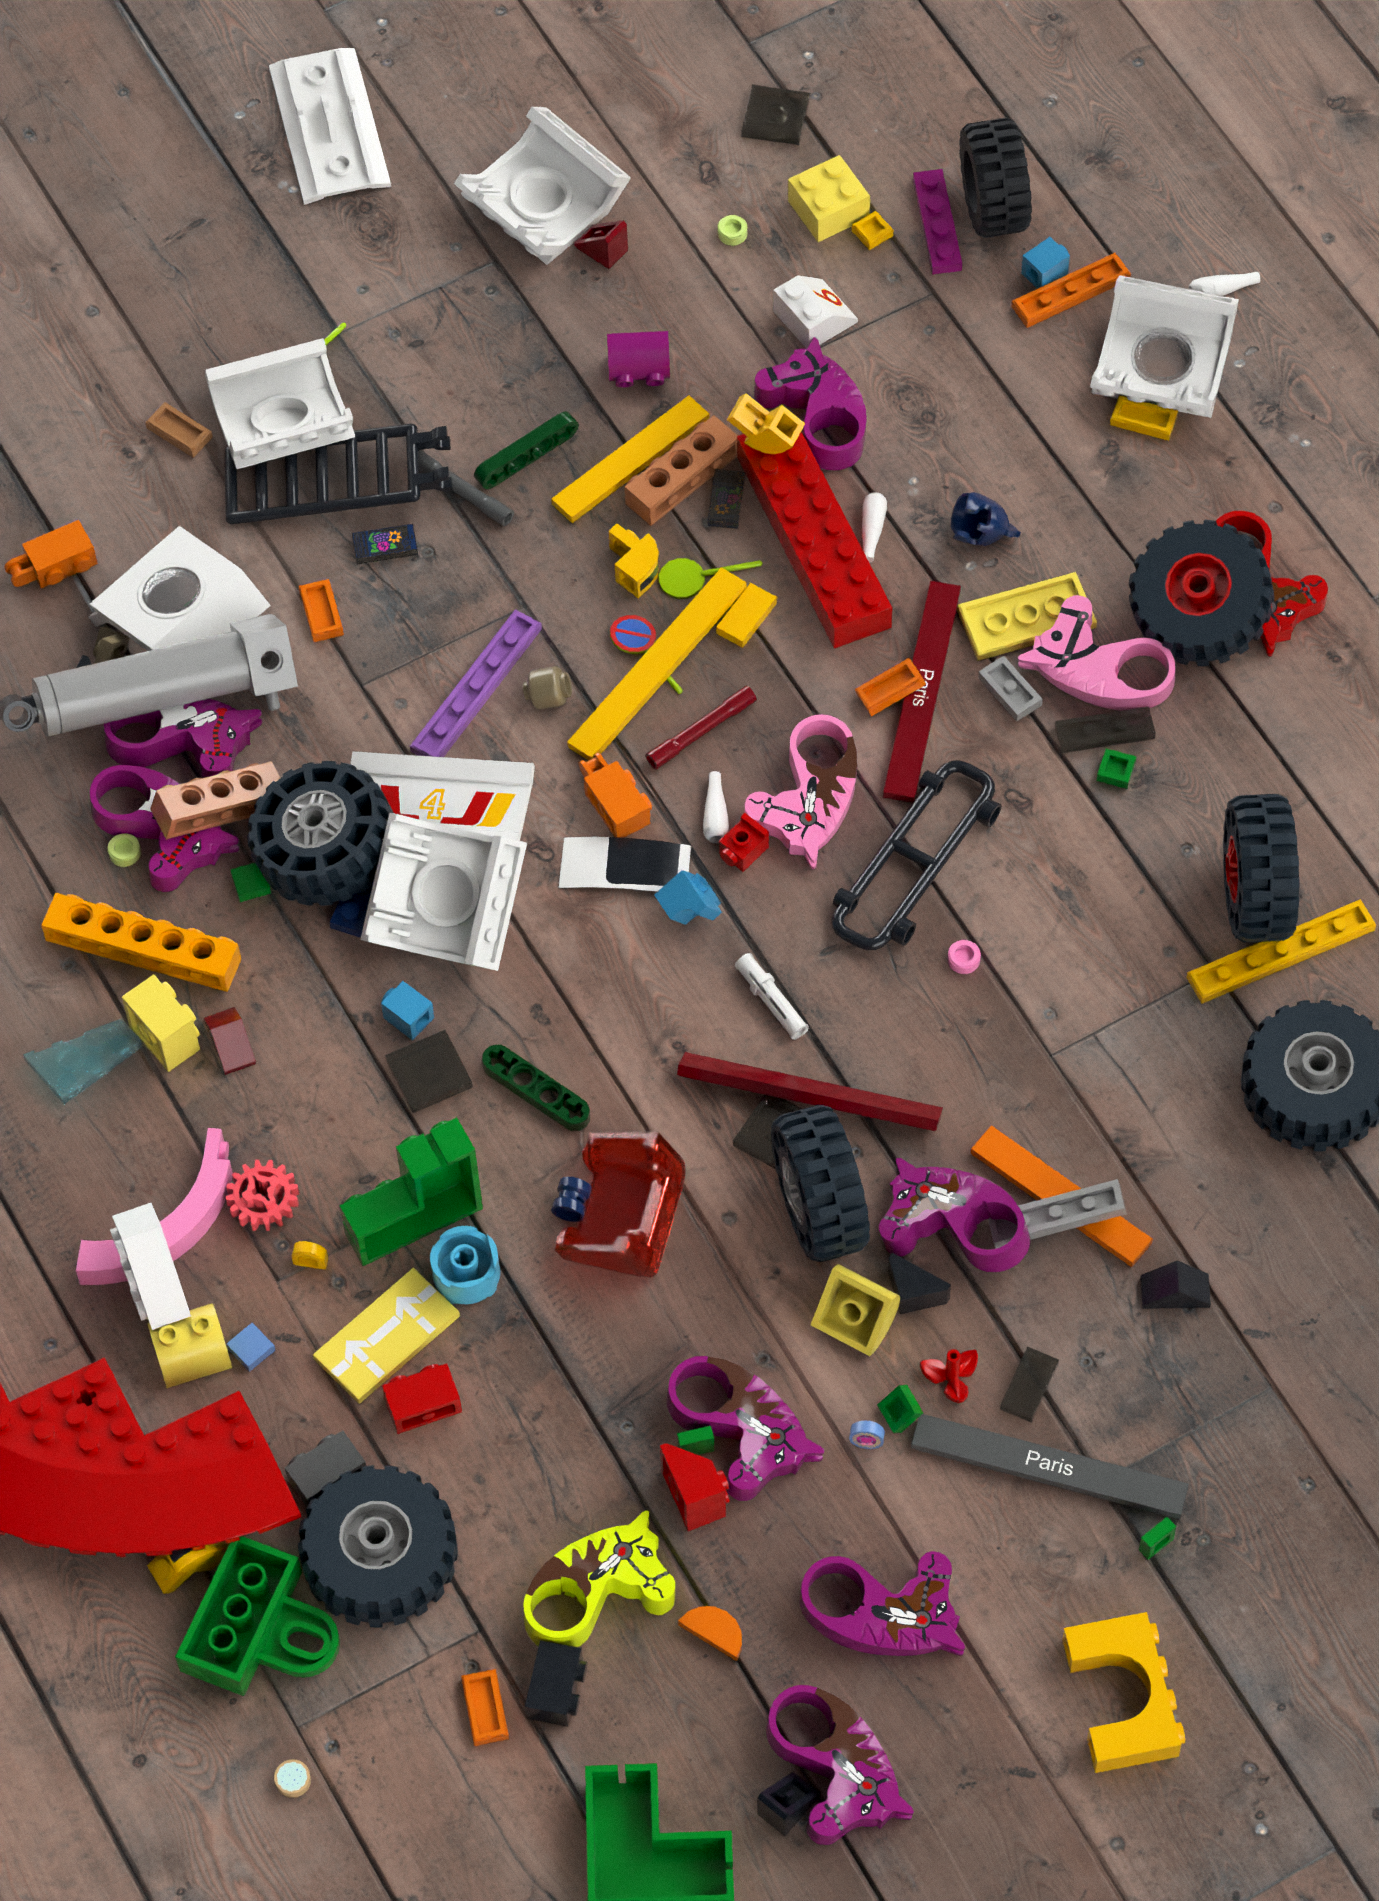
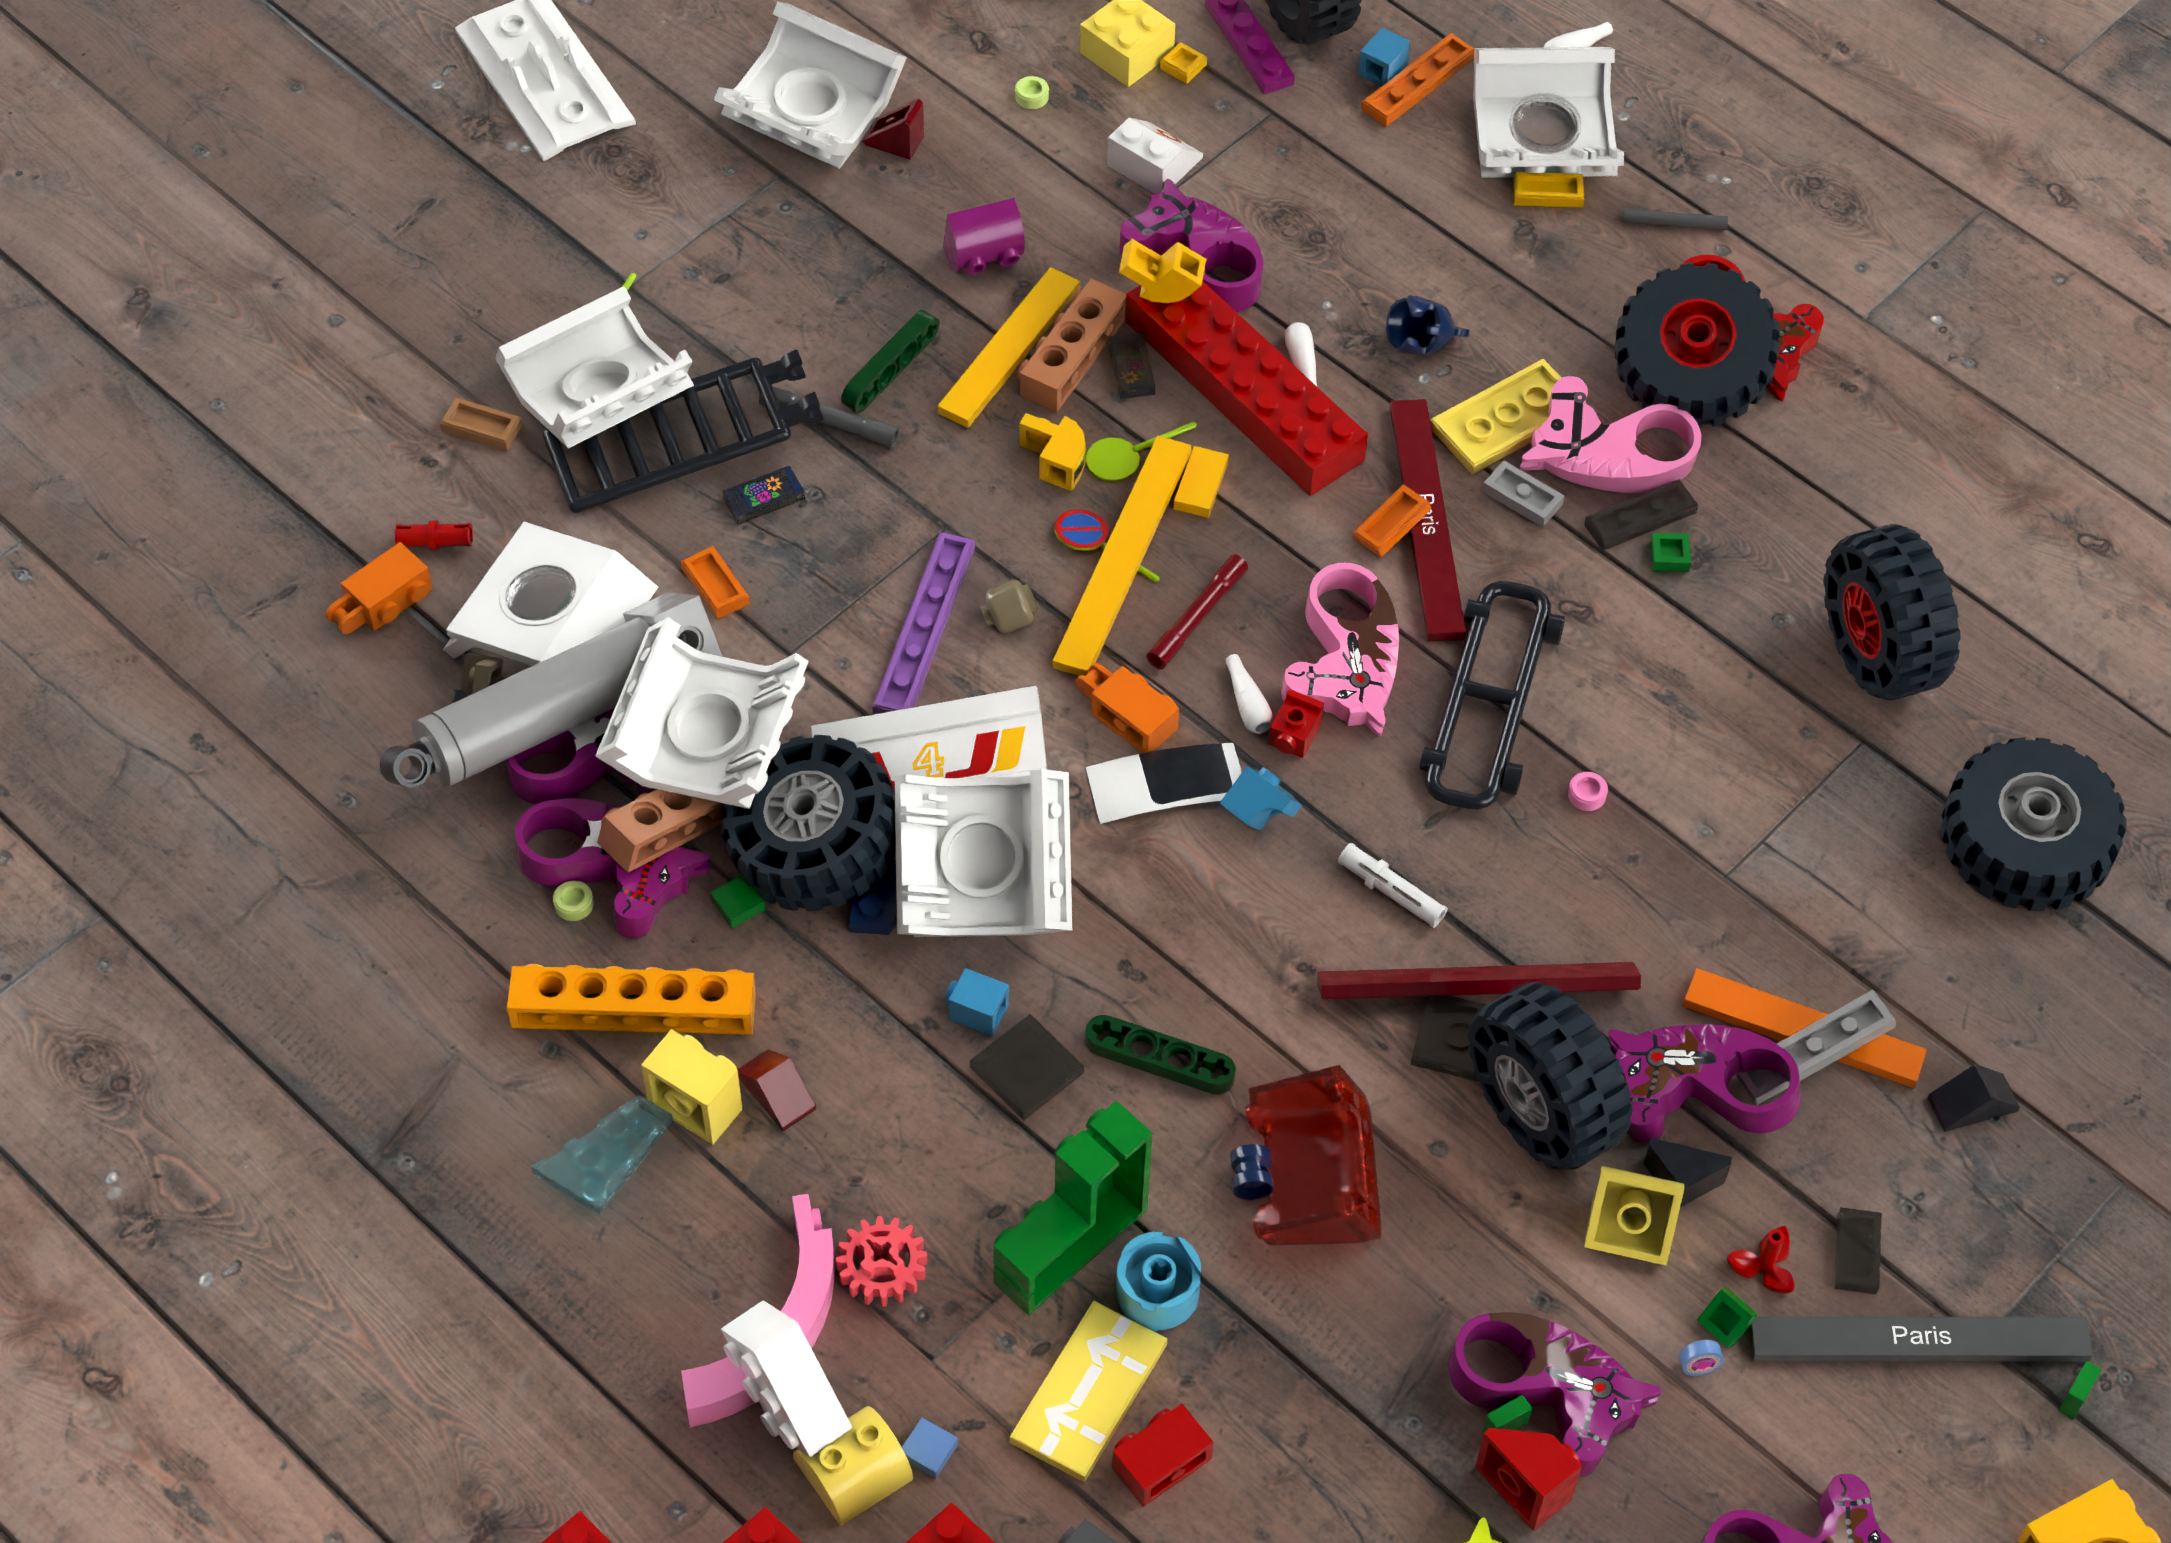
camera: 20 degrees left, 5 degrees down
(110, 518) = (434, 535): none -> red pin
(254, 727) = (699, 719): none -> white panel
(309, 1255) = (963, 1317): yellow tile -> none
(1243, 469) = (1674, 219): none -> dark grey bar
(1273, 956) = (1921, 711): yellow tile -> none

